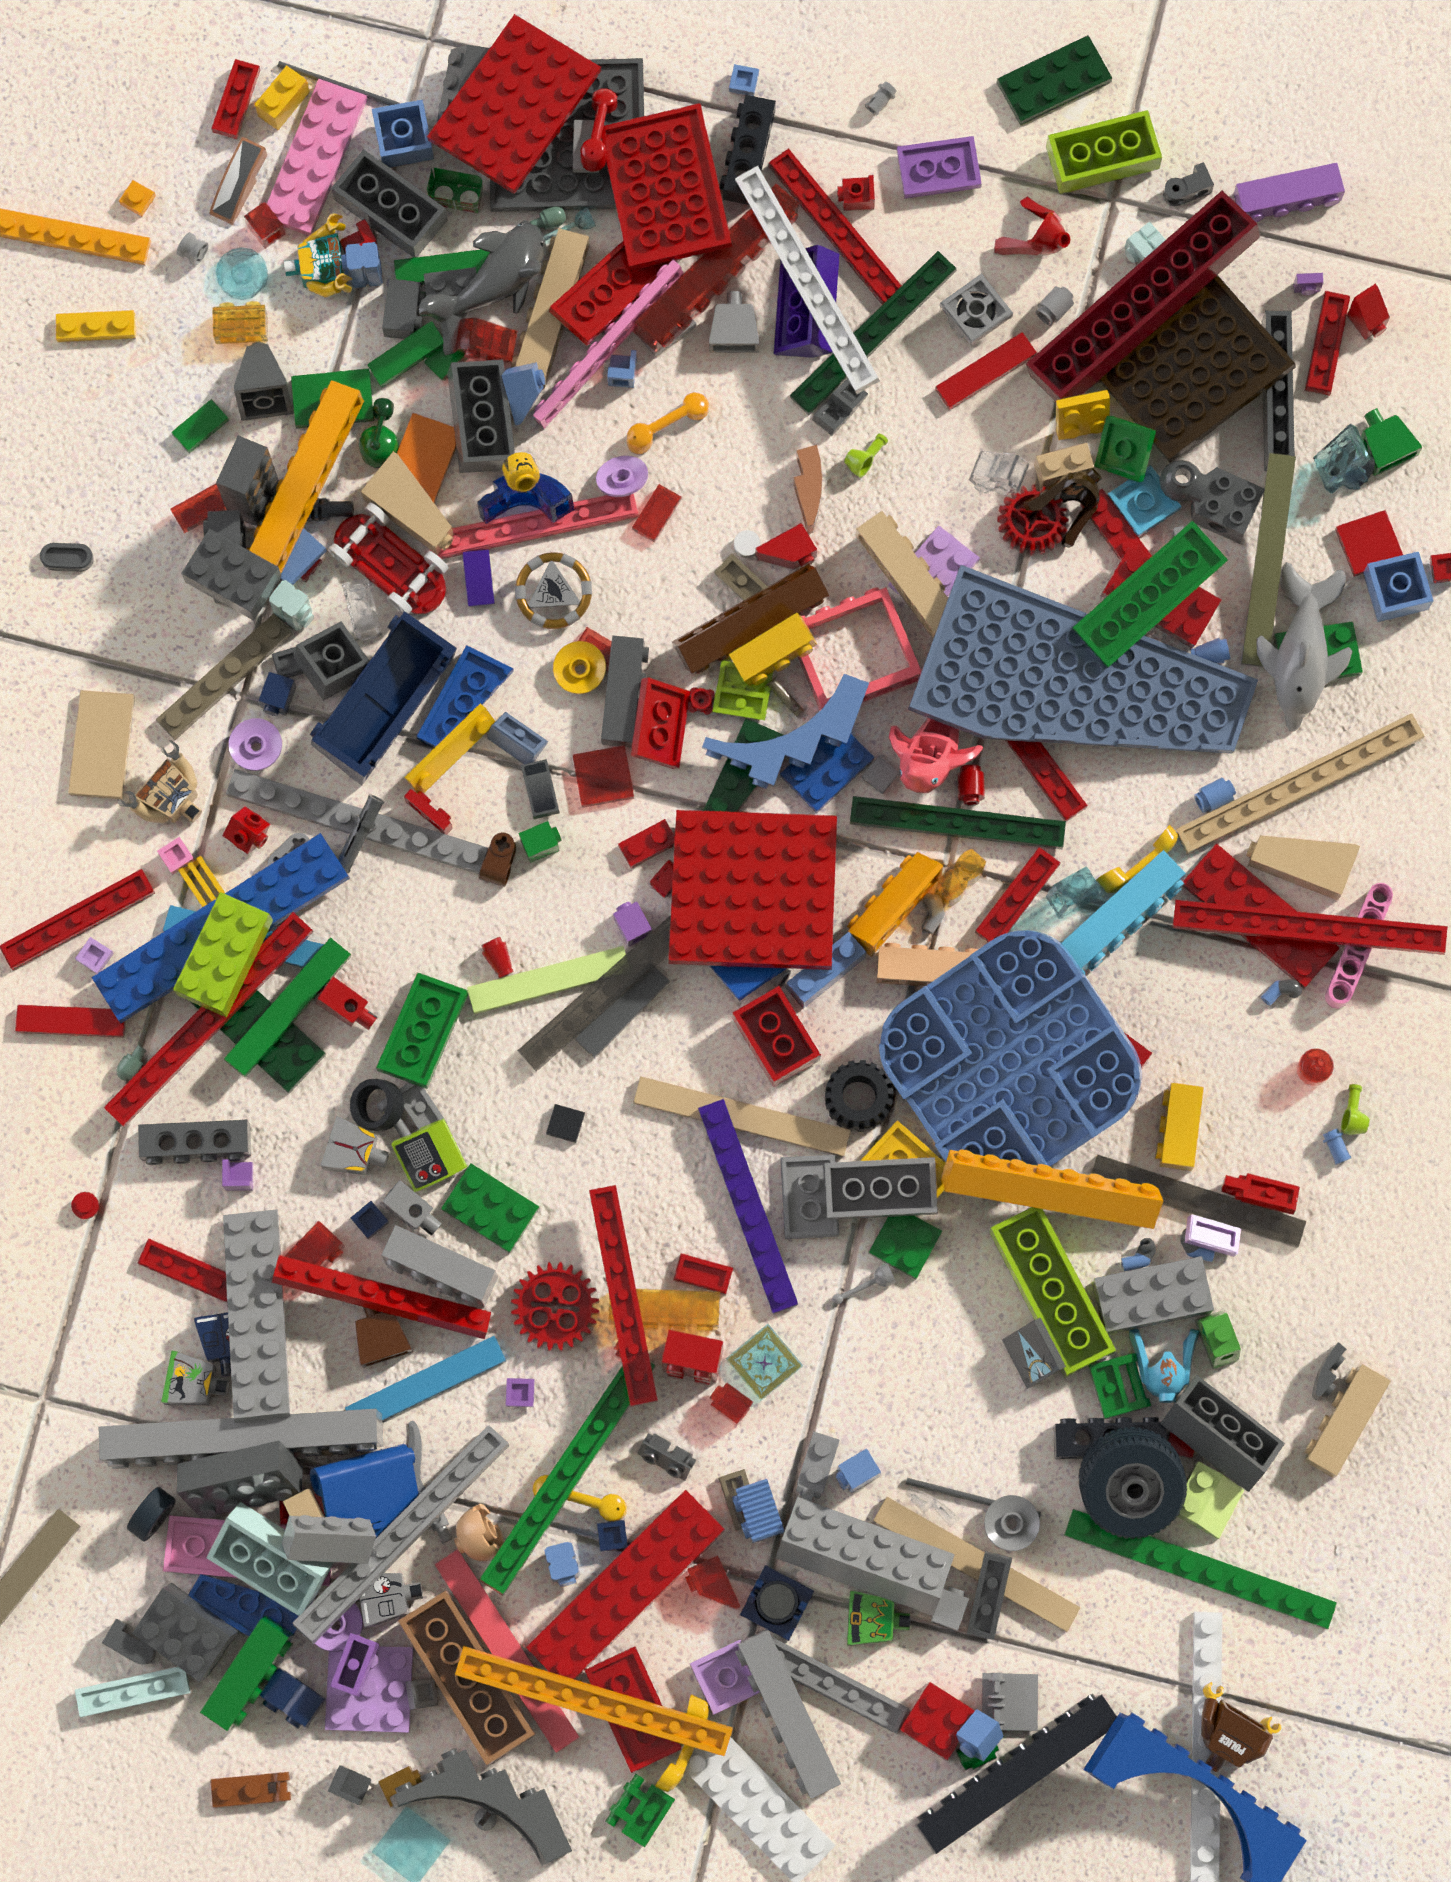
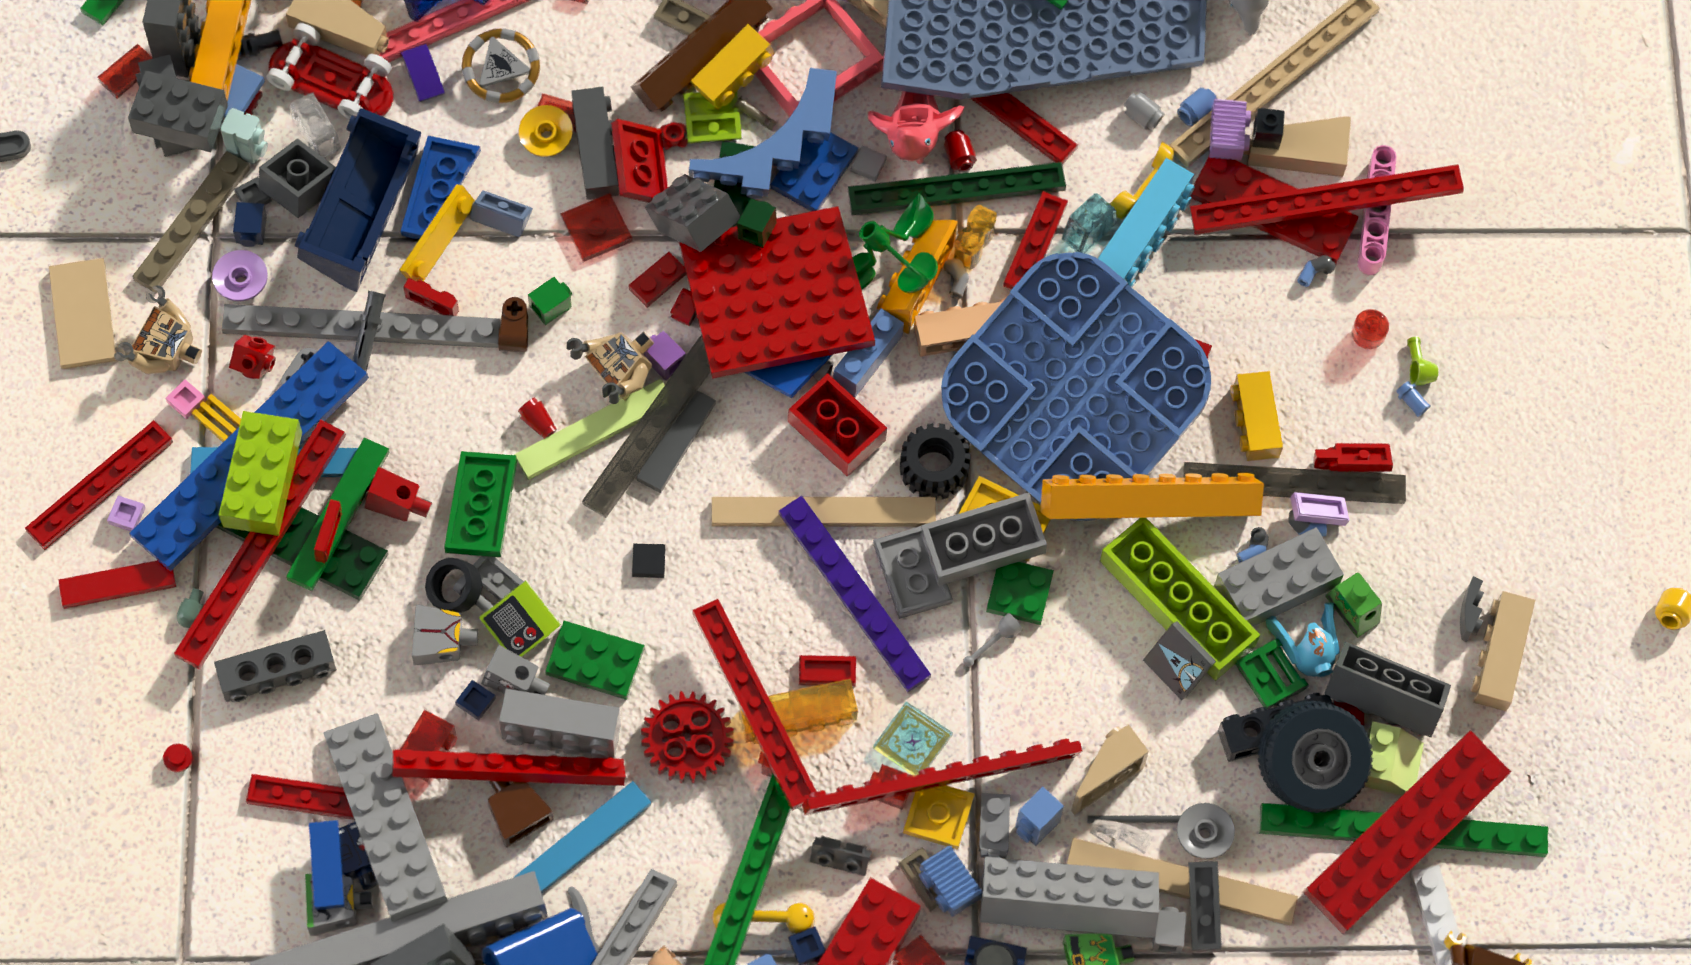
camera: 20 degrees left, 10 degrees down
(192, 1348) = (326, 865): none -> blue tile
(237, 1175) = (328, 691): medium lavender panel -> none
(272, 1026) = (328, 531): none -> red tile
(520, 1392) = (674, 829): medium lavender plate -> none
(540, 789) = (537, 252): slope -> none
(585, 922) = (617, 362): none -> torso
(692, 1357) = (841, 744): red brick -> none
(694, 790) = (692, 212): none -> dark grey brick
(752, 817) = (757, 222): none -> dark green brick
(765, 1409) = (930, 778): none -> red plate
(768, 1440) = (939, 815): none -> yellow plate
(896, 905) = (911, 224): none -> green plant
(943, 1437) = (1116, 762): none -> tan slope
(1161, 786) = (1143, 110): none -> light grey brick
(1198, 1577) = (1406, 832): none -> red brick
(1236, 829) = (1228, 129): none -> lavender brick
(1273, 841) = (1268, 128): none -> black brick

